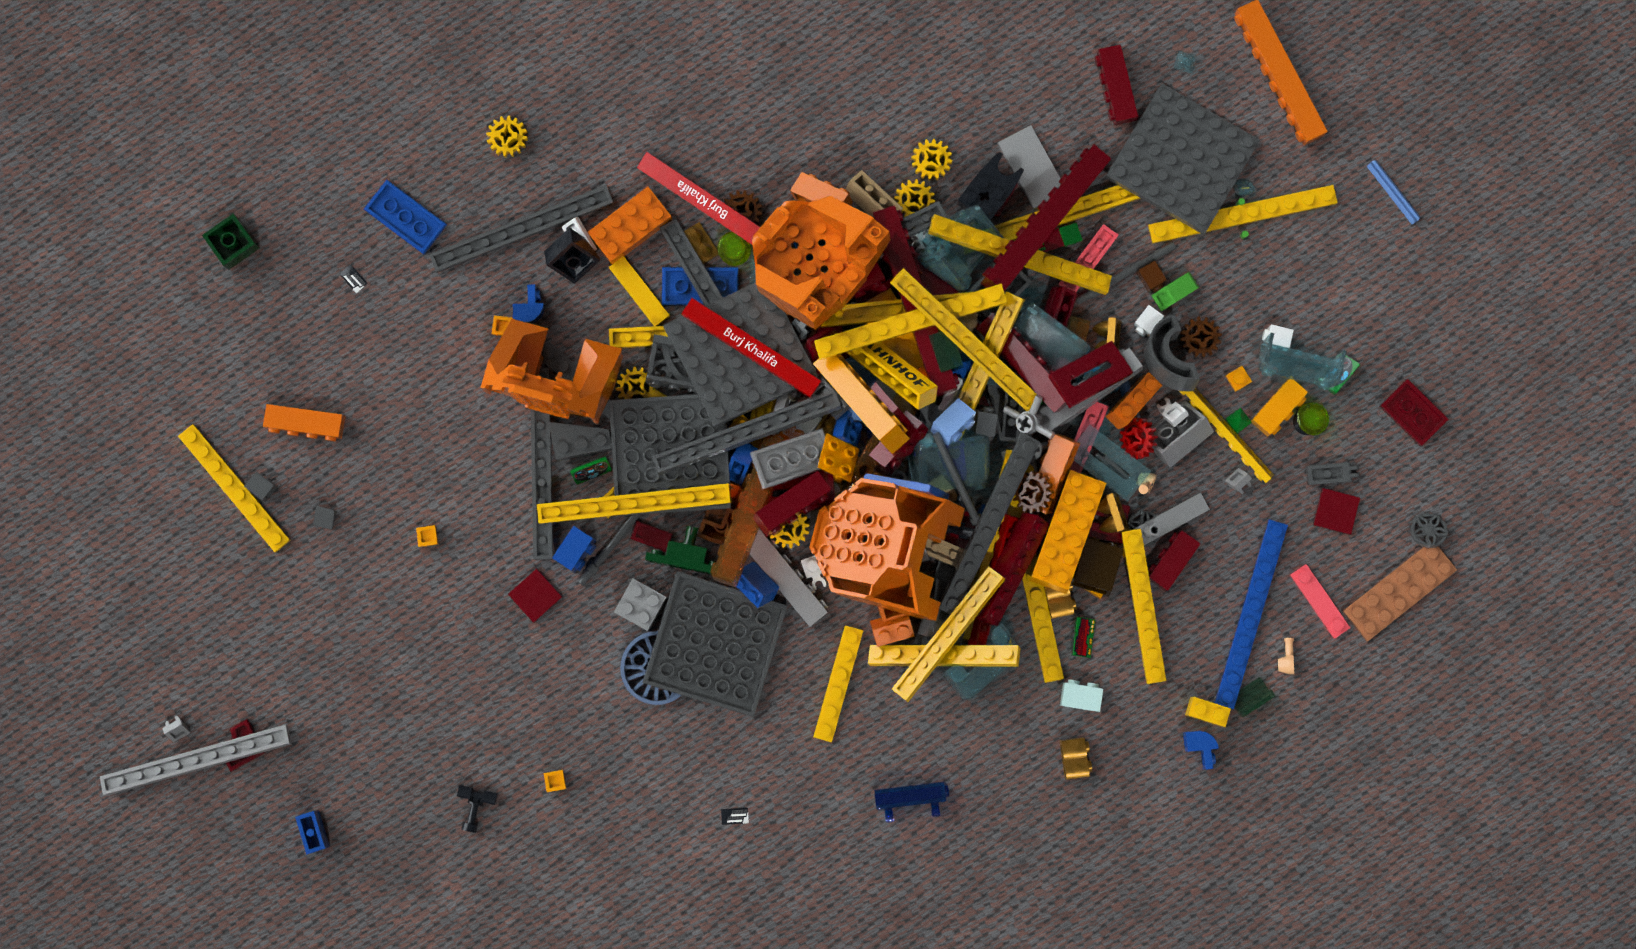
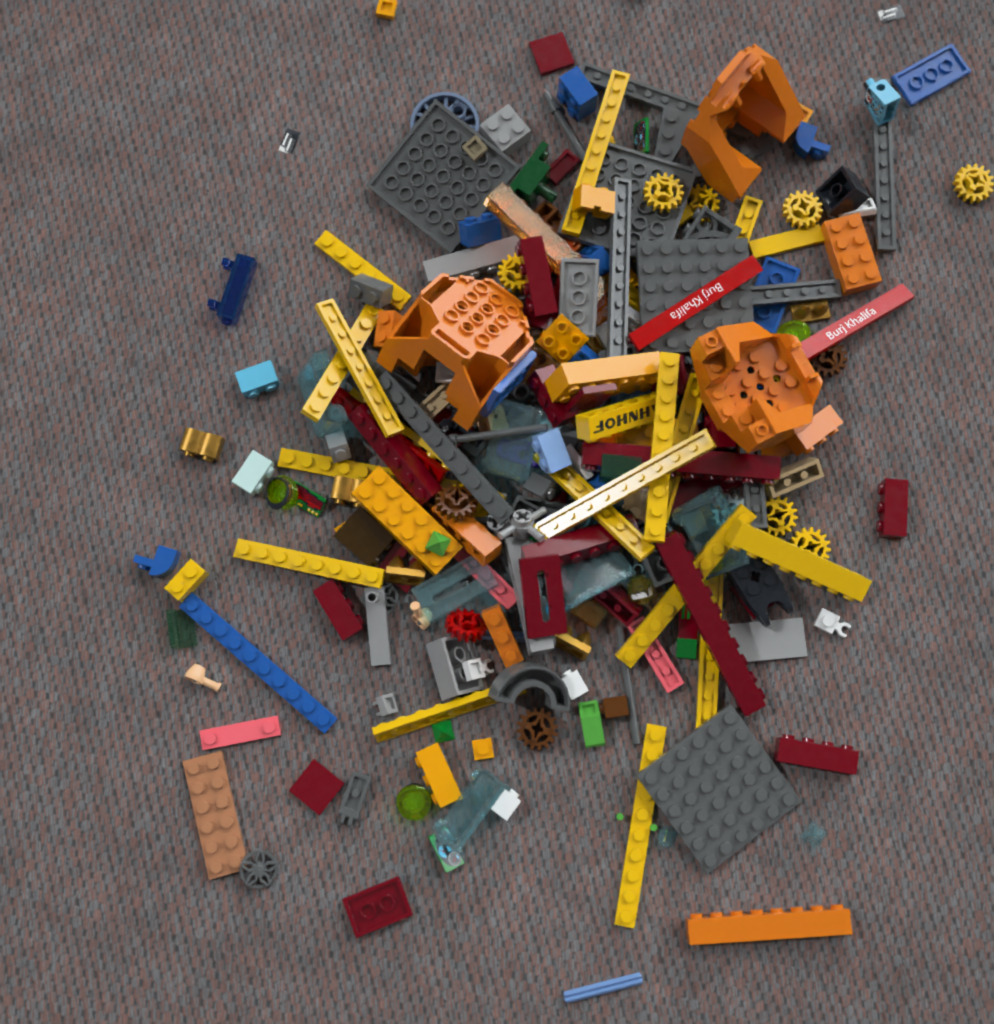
camera: 110 degrees right, 5 degrees down
(467, 249) = (881, 100): none -> medium azure torso
(595, 293) = (800, 211): none -> yellow gear
(646, 430) = (663, 192): none -> yellow gear
(678, 622) = (475, 148): none -> dark tan tile
(692, 482) = (594, 200): none -> light orange brick
(860, 664) = (370, 290): none -> dark grey brick
(862, 98) = (892, 508): none -> dark red brick
(955, 163) = (798, 560): none -> yellow brick
(990, 734) = (257, 379): none -> medium azure brick
(991, 118) = (829, 622): none -> white plate
(1023, 627) = (338, 446): none -> light grey brick
(1038, 294) = (640, 589): none -> clear yellow head
(1079, 491) = (438, 543): none -> bright green slope
(1089, 661) = (281, 492): none -> clear neon green piece

